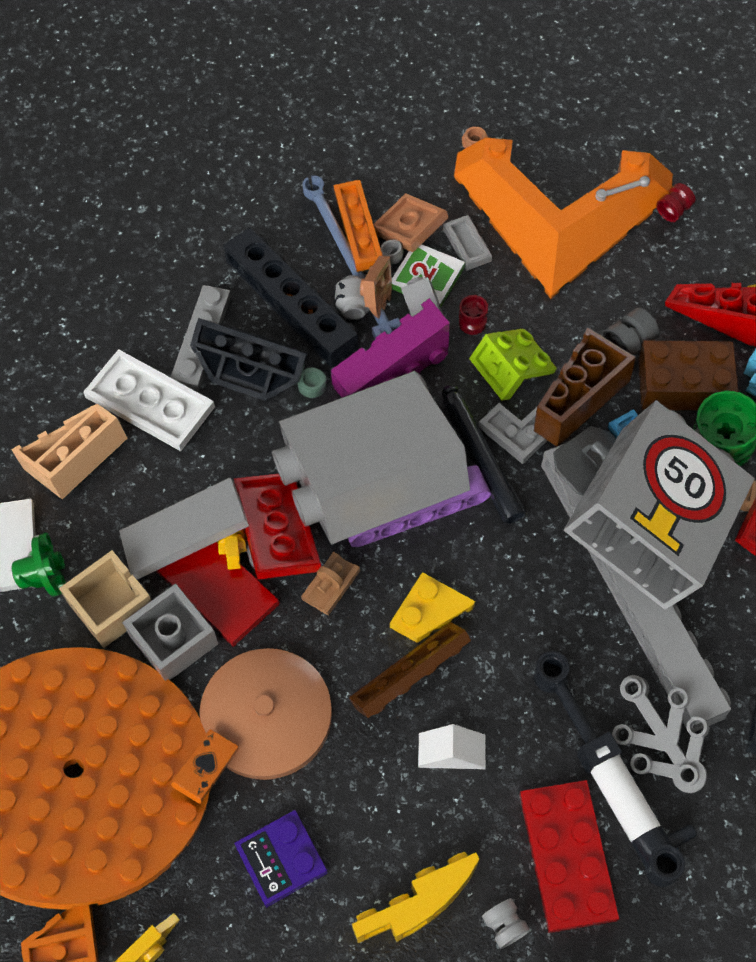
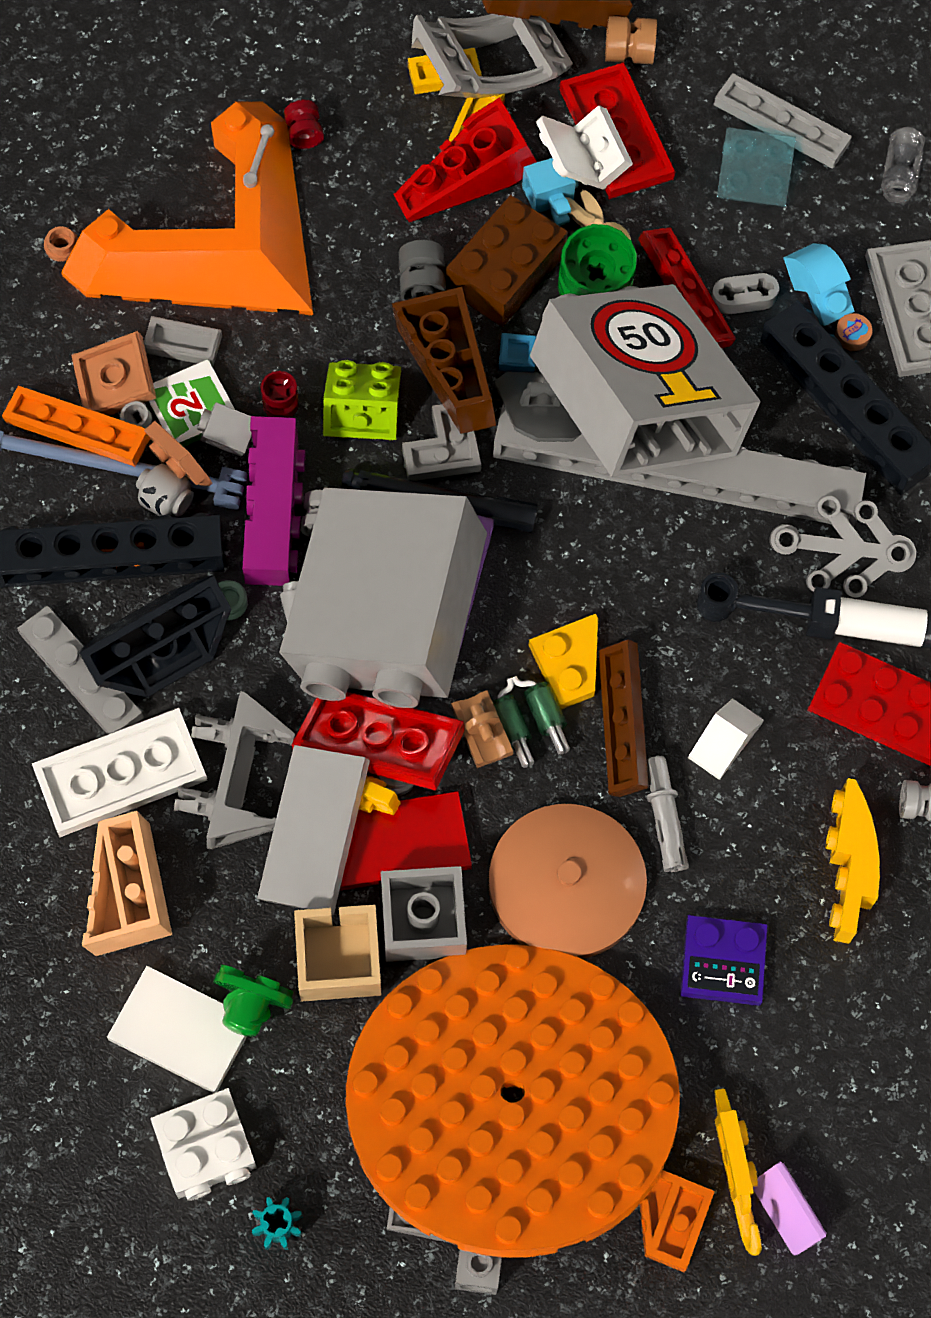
camera: 60 degrees left, 5 degrees up
(193, 461) = (225, 805): none -> light grey hose
(204, 766) = (595, 966): orange tile -> none
(360, 745) = (666, 815): none -> light grey axle
(376, 618) = (544, 710): none -> clear green piece

